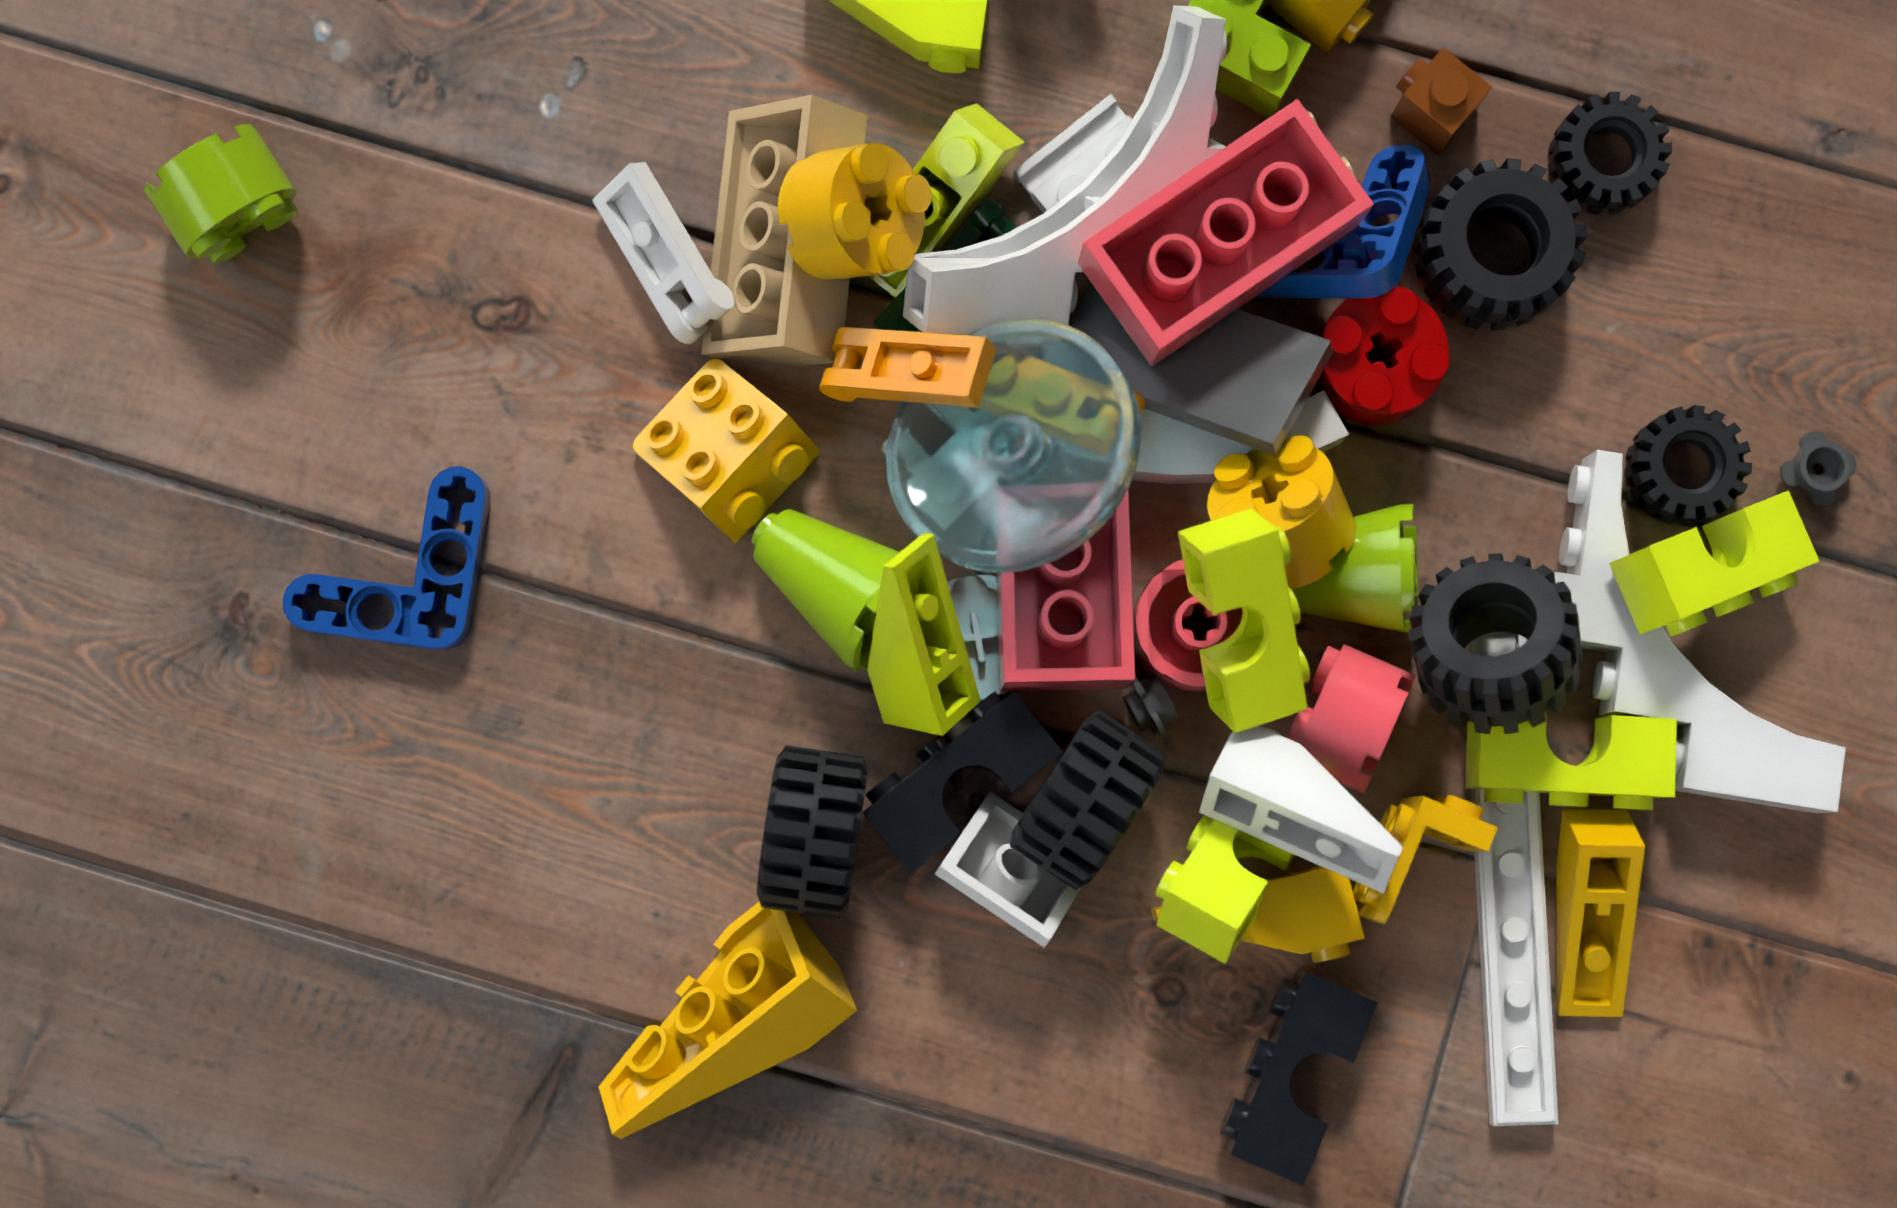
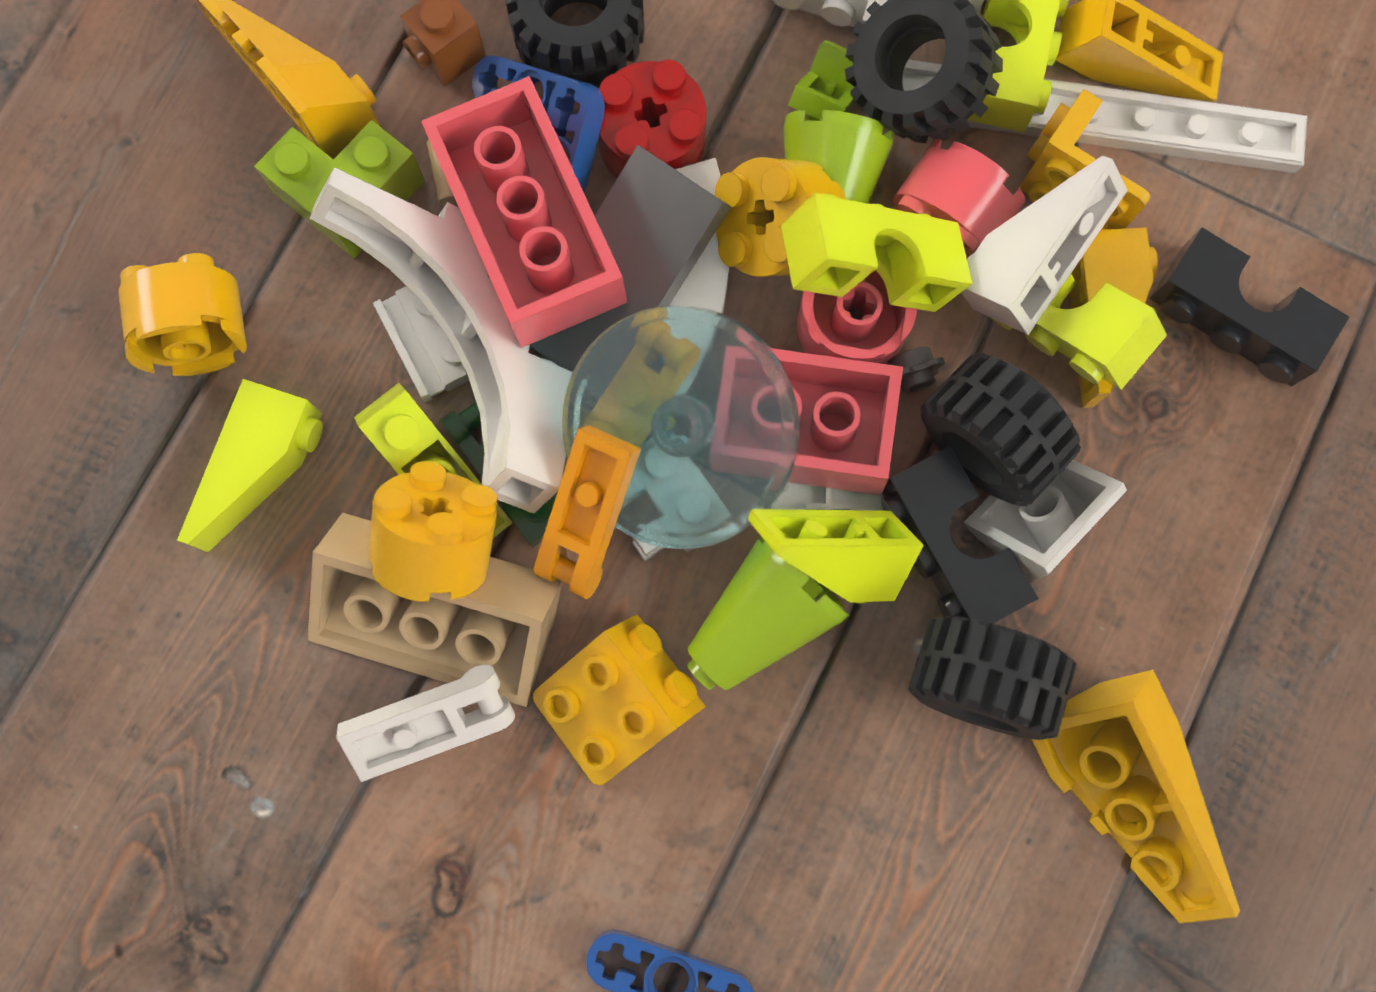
camera: 80 degrees left, 5 degrees down
(1457, 536) = (824, 84): none -> lime bracket

